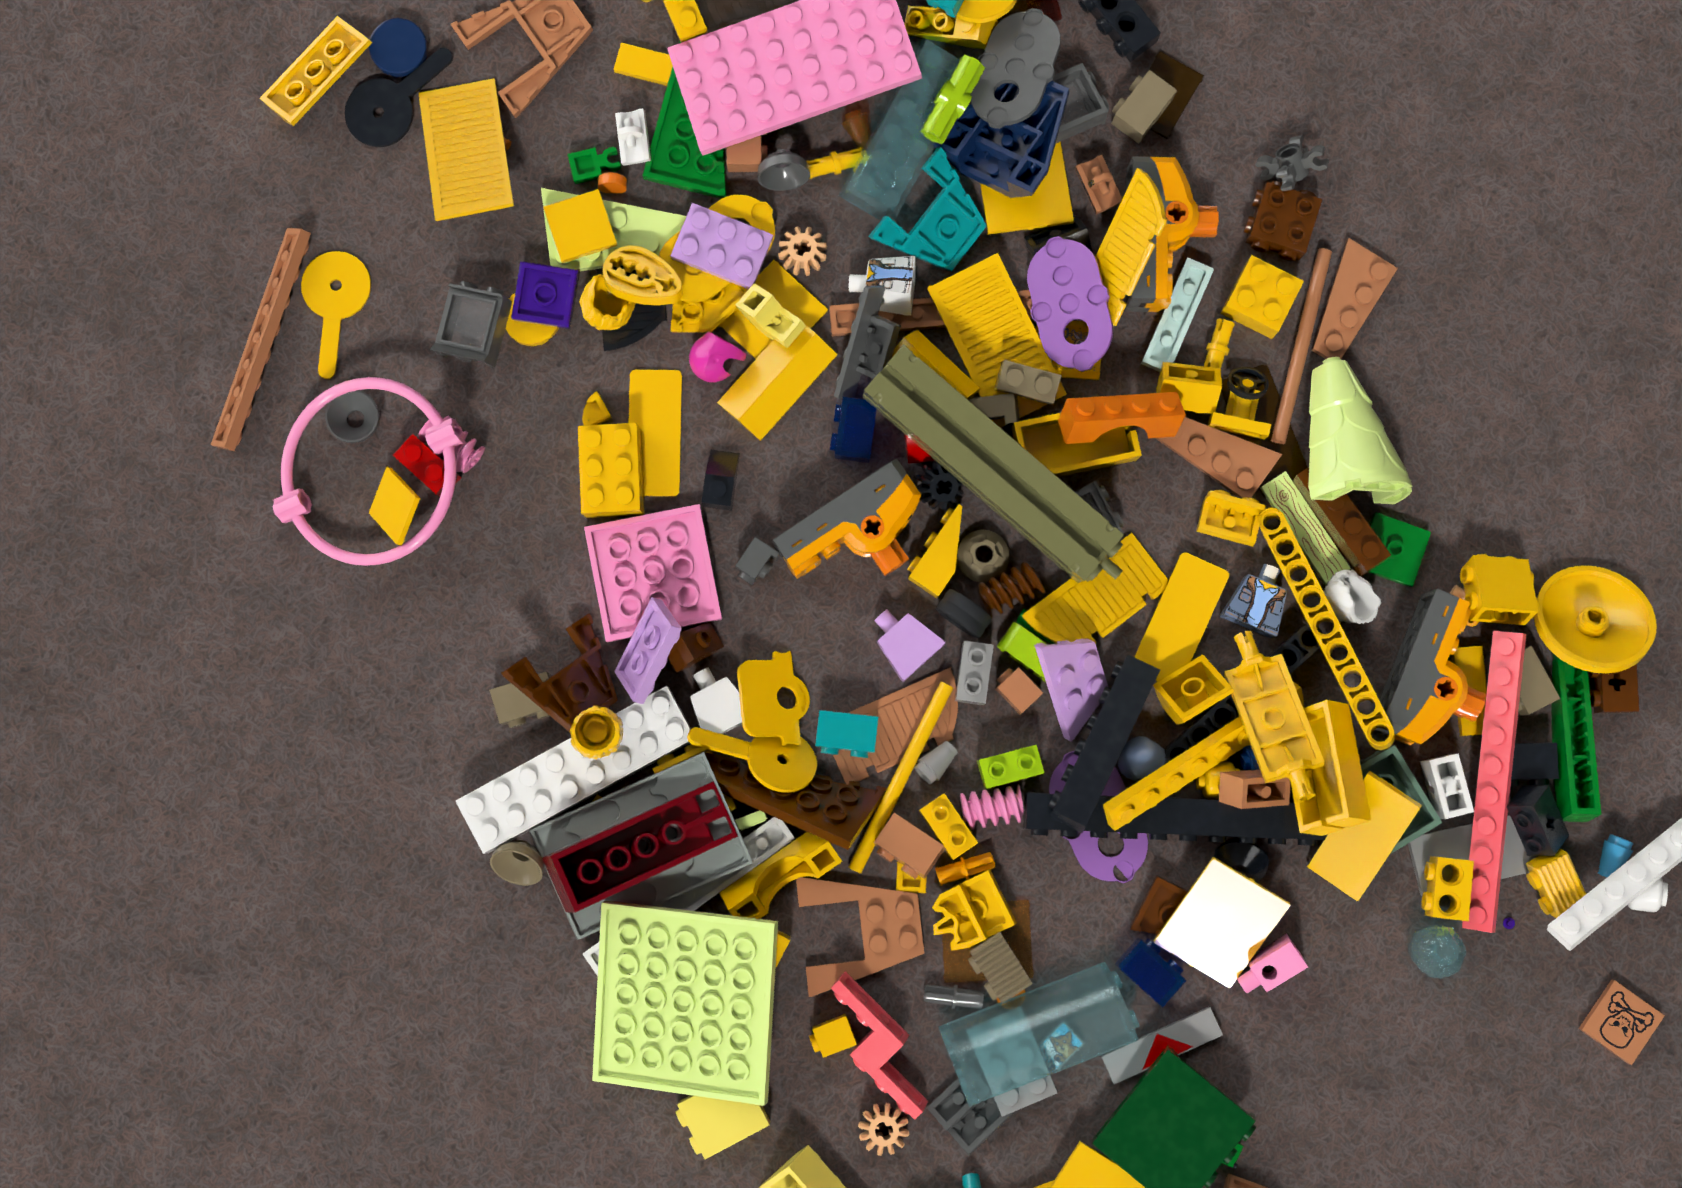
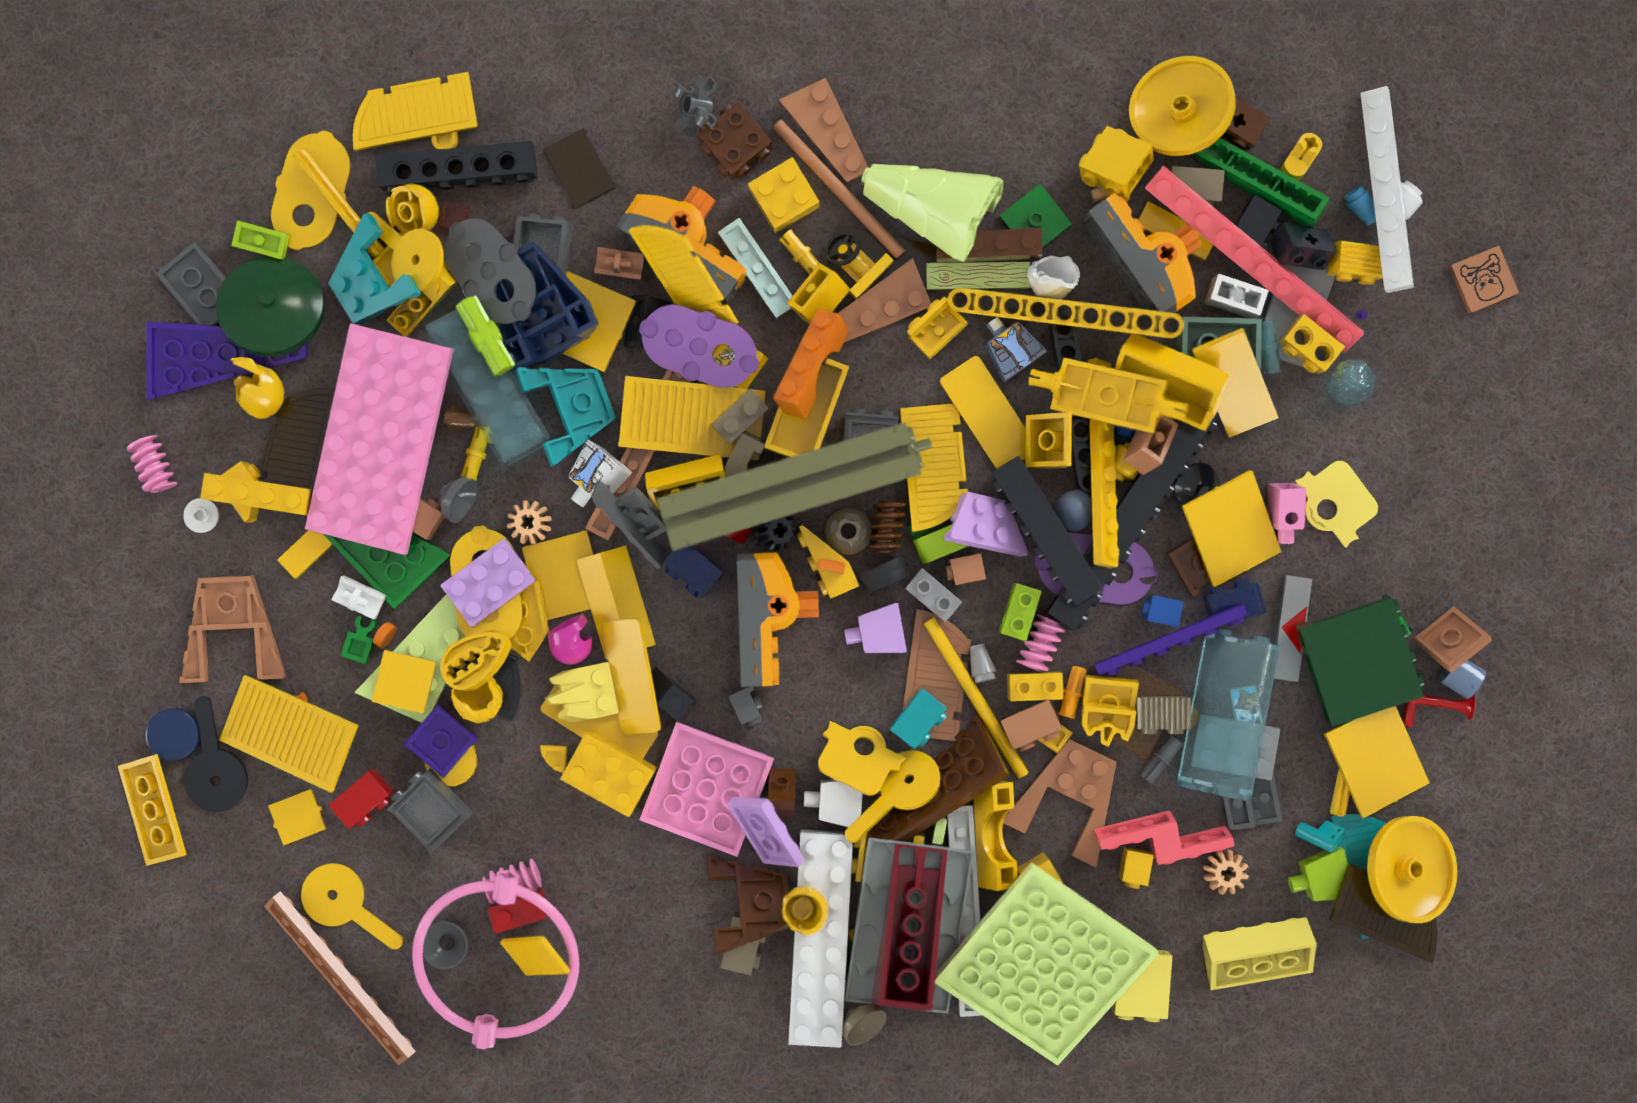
camera: 55 degrees left, 5 degrees up
(389, 208) = (297, 817): none -> yellow piece
(443, 256) = (361, 799): none -> red brick
(673, 401) = (584, 693): none -> light yellow plate
(716, 434) = (631, 676): none -> yellow piece
(769, 316) = (565, 579): light yellow brick -> none
(941, 555) = (831, 565): none -> orange tile
(1086, 938) = (1181, 636): none -> dark purple plate
(1098, 905) = (1162, 610): none -> blue brick
(1143, 107) = (580, 191): dark tan brick -> none
(1328, 1018) = (1352, 500): none -> light yellow piece
(1419, 850) = (1270, 348): none -> clear light blue pin
(1632, 767) = (1307, 149): none -> yellow piece

